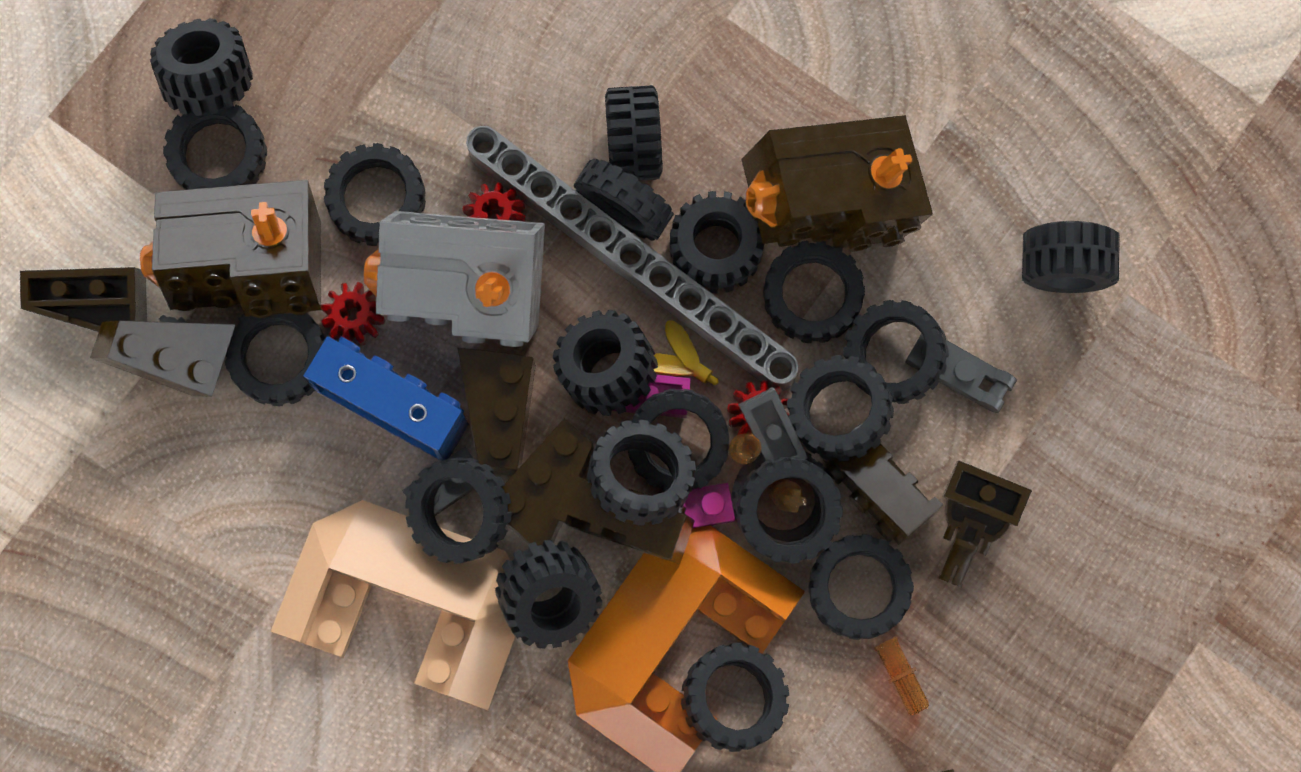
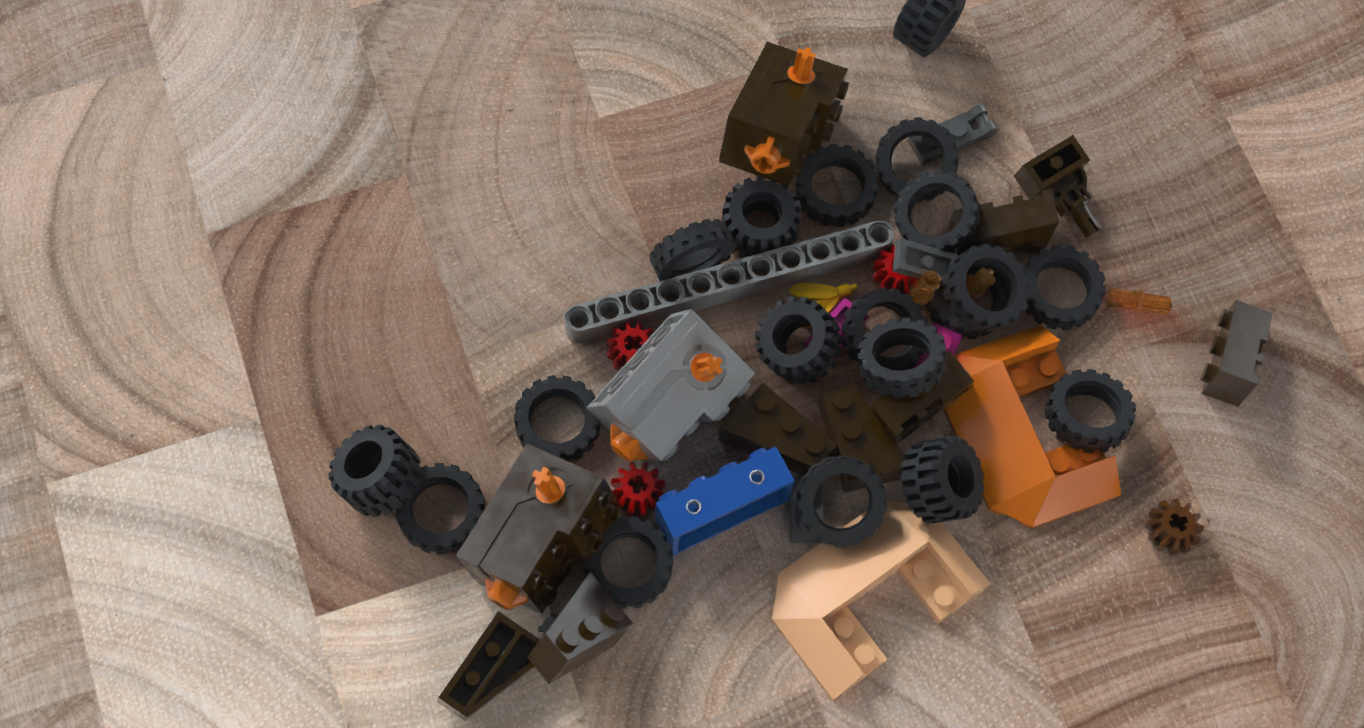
camera: 60 degrees left, 10 degrees down
(634, 130) = (646, 213): black tyre -> none

